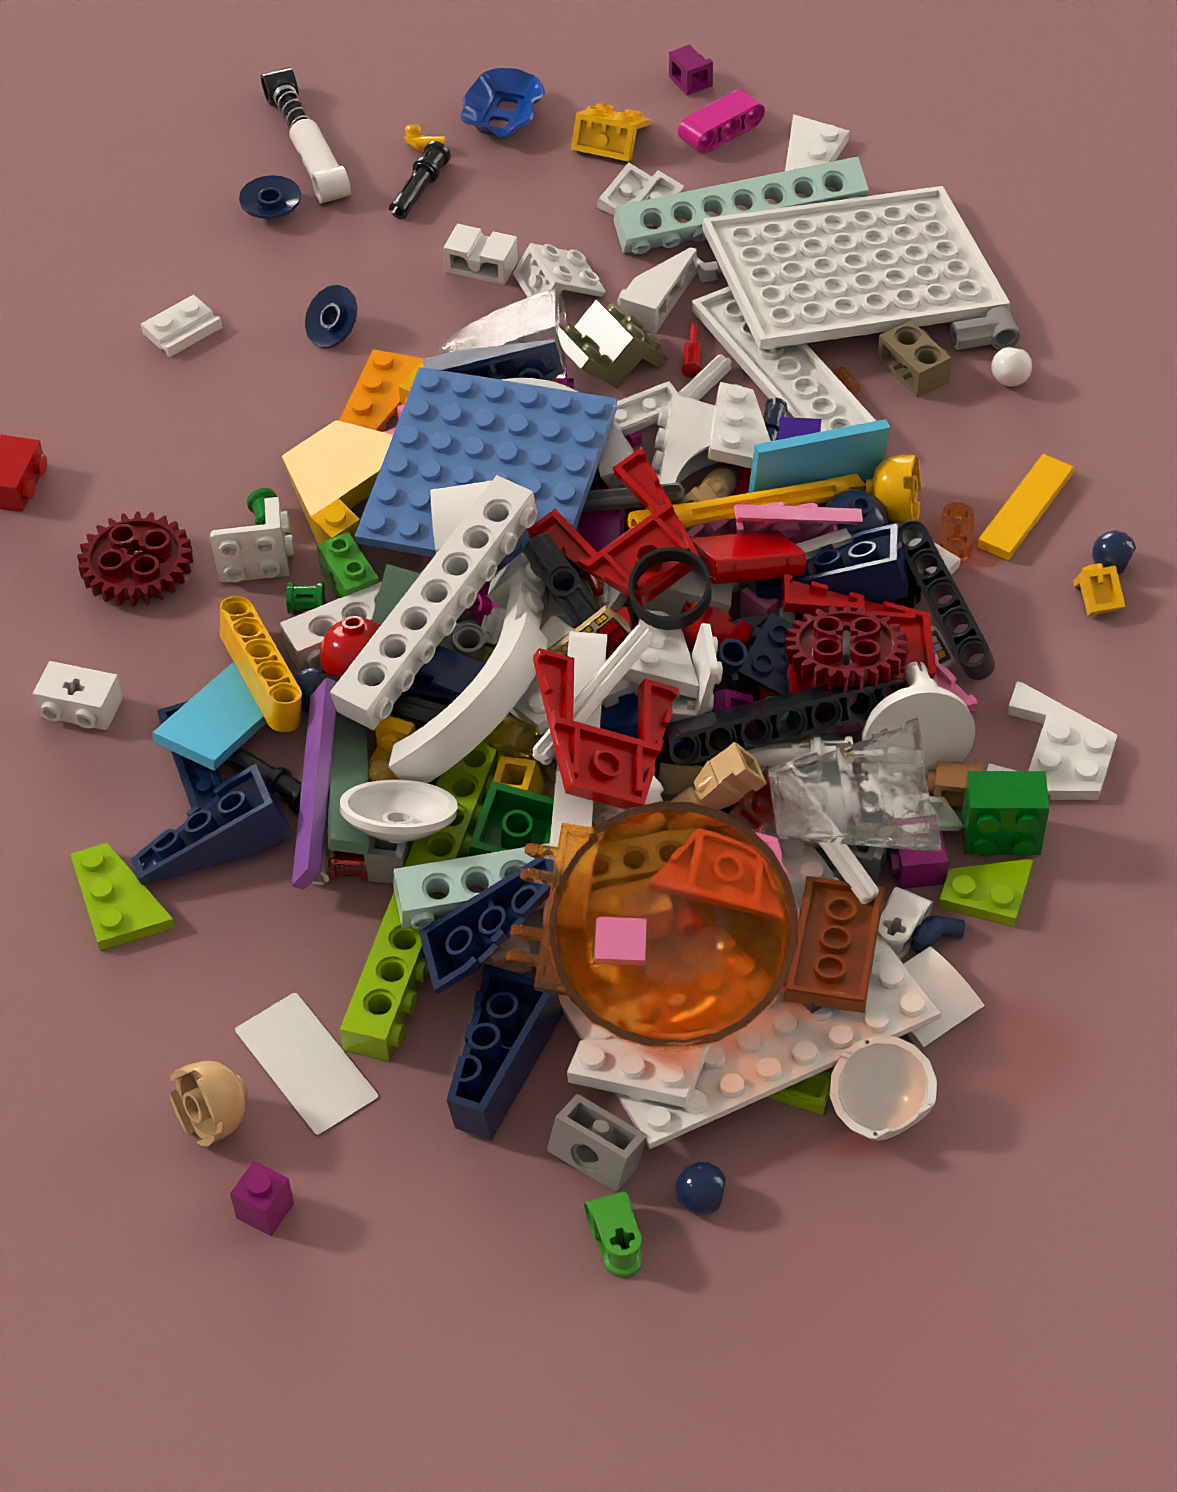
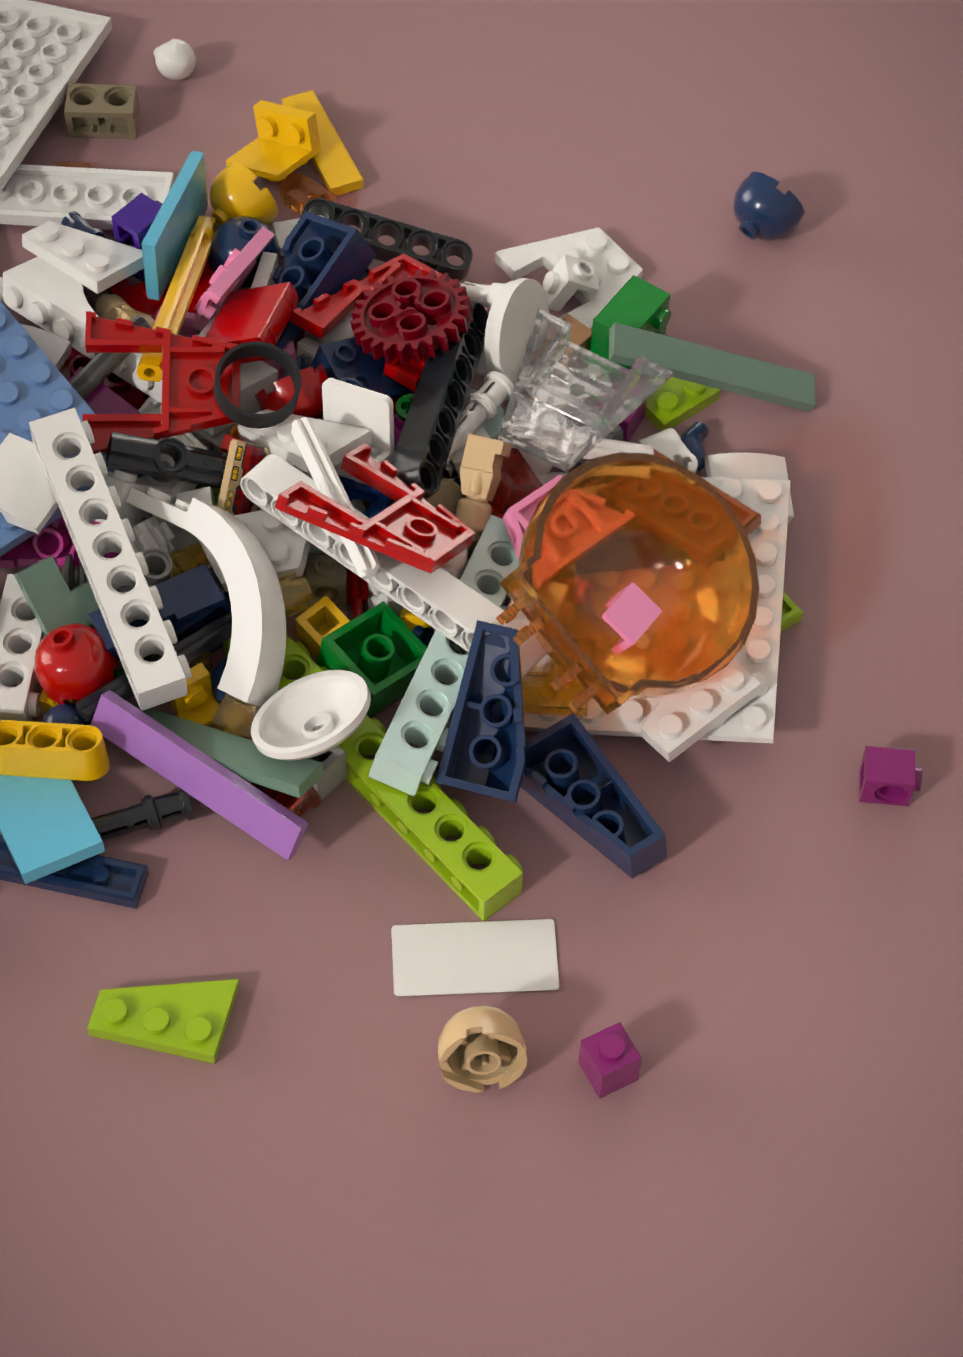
camera: 60 degrees left, 5 degrees up
(232, 826) = (171, 878): dark blue wedge -> none
(596, 1142) = (737, 777): light grey brick -> none
(616, 1233) = (821, 814): bright green piece -> none
(695, 1260) = (888, 776): none -> magenta brick
(700, 1188) = (824, 734): dark blue piece -> none
(882, 1087) = (828, 557): white cylinder -> none
(980, 483) = (283, 143): none -> yellow bracket
(994, 328) = (119, 47): light grey piece -> none
(1013, 891) = (714, 367): none -> sand green tile
(1034, 745) = (566, 278): none -> white bracket
(1100, 589) = (452, 149): yellow bracket -> none
(1113, 549) = (423, 119): dark blue piece -> none

